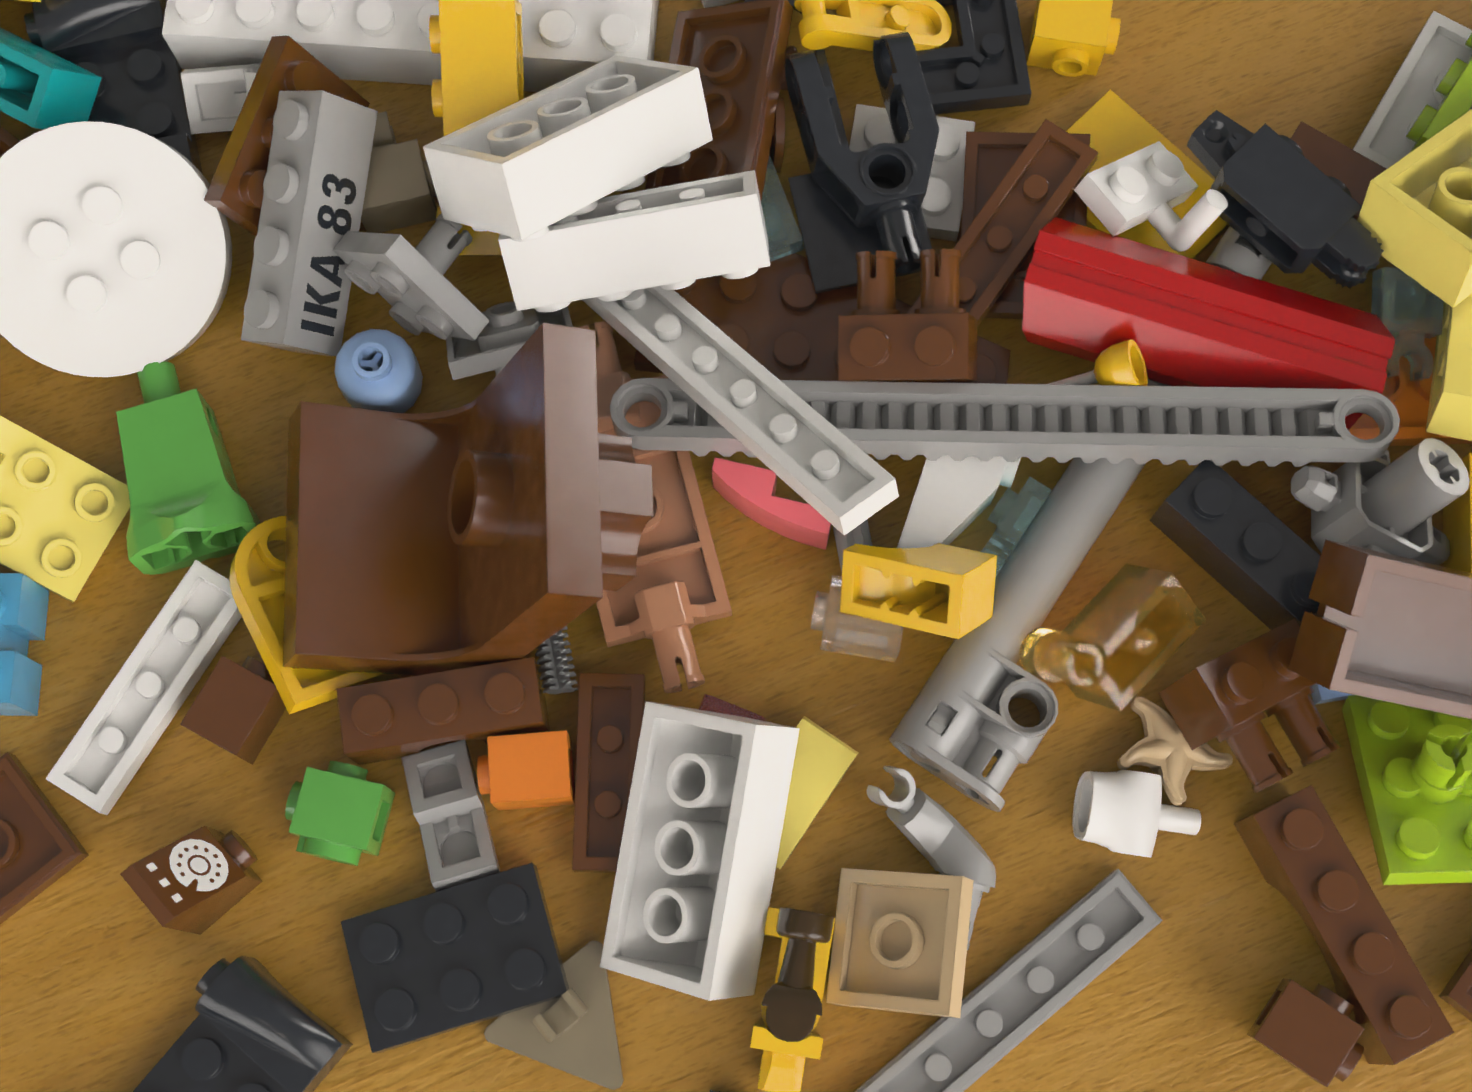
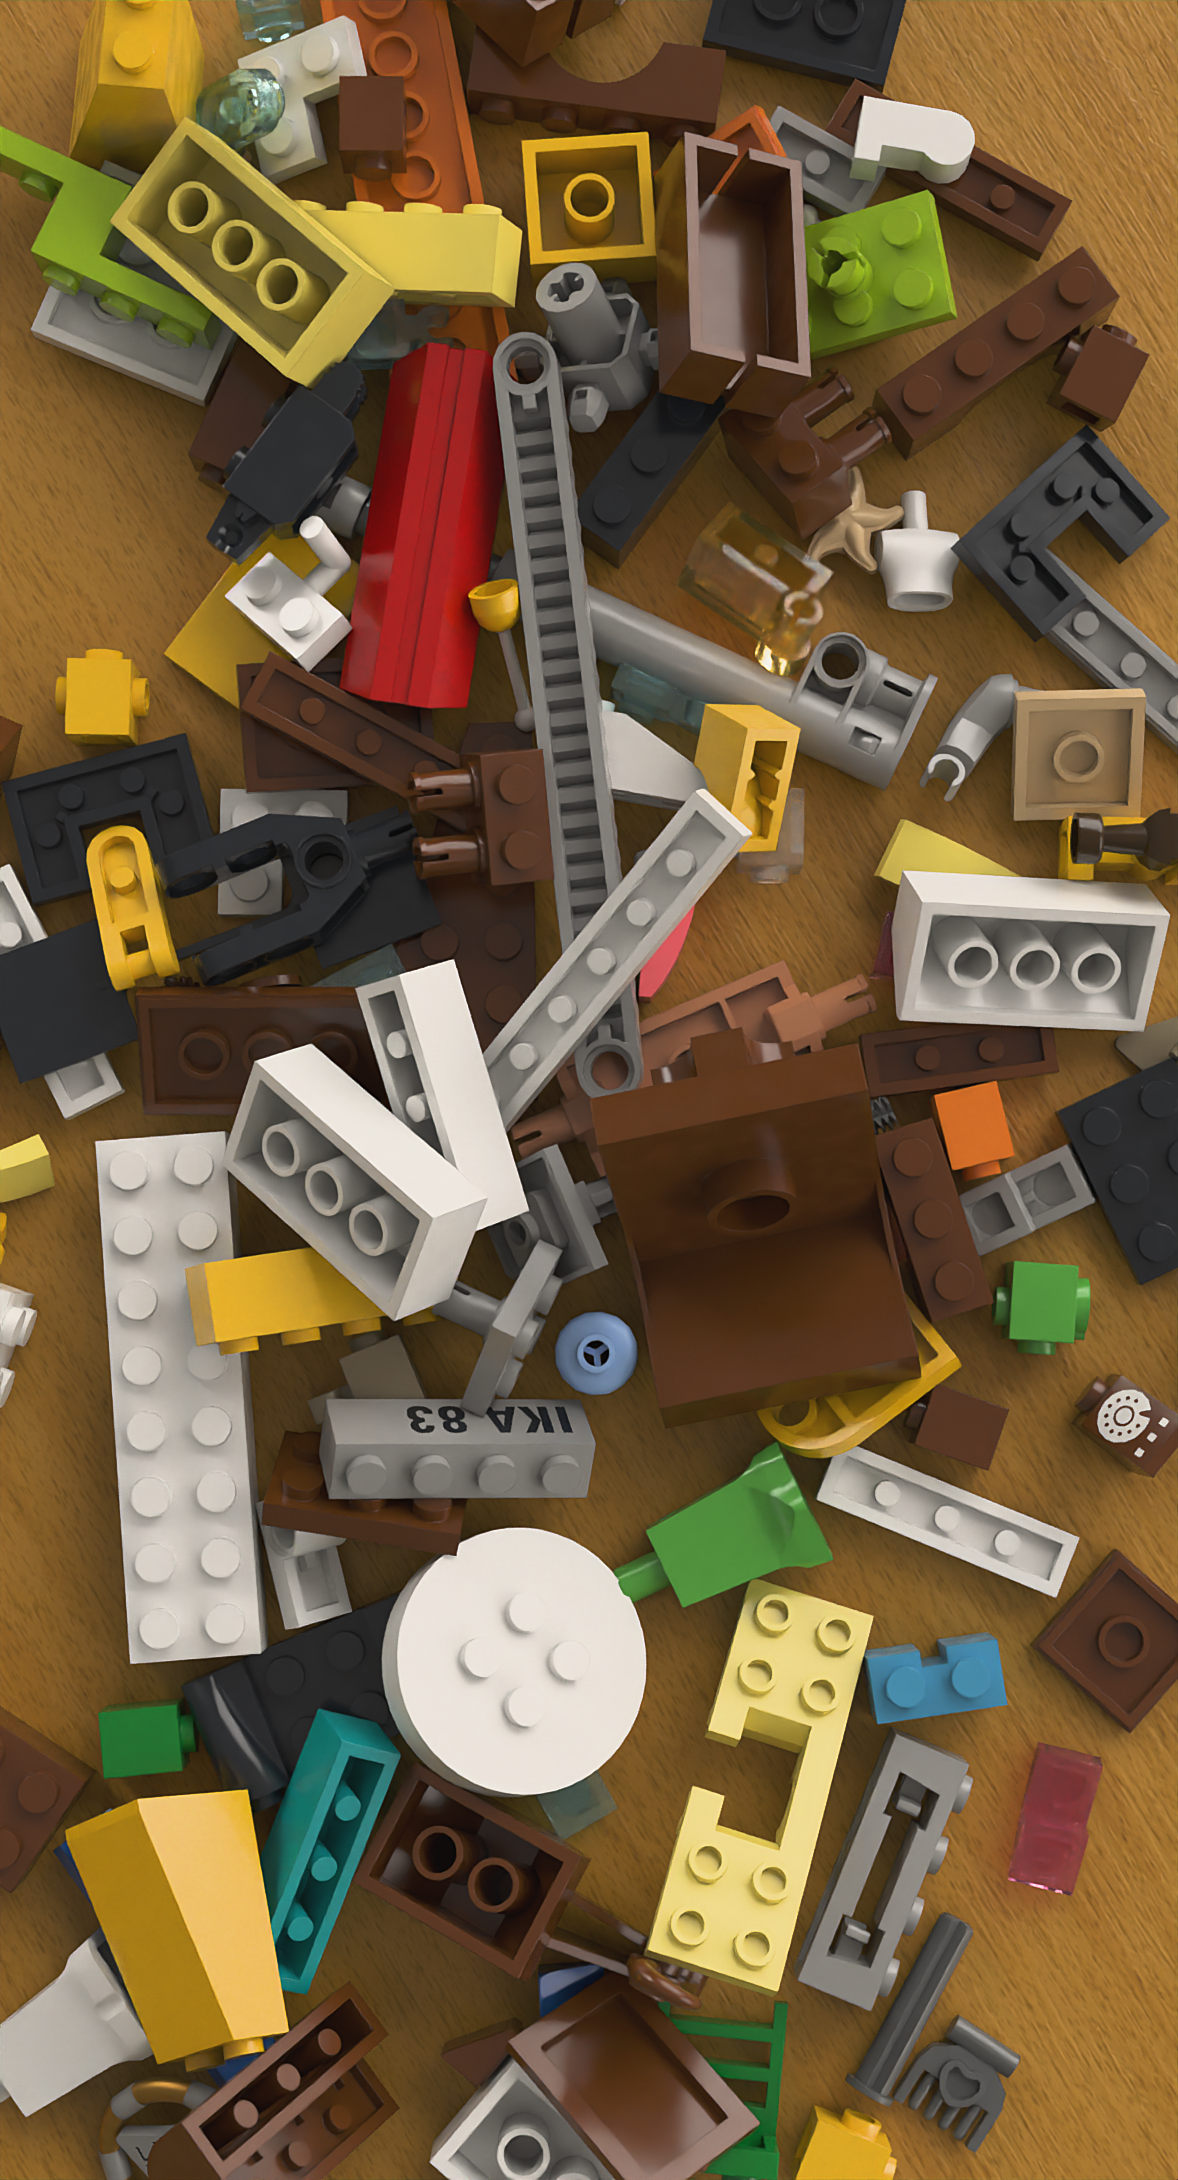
camera: 100 degrees left, 10 degrees up
(1193, 990) = (1010, 541): none -> black plate

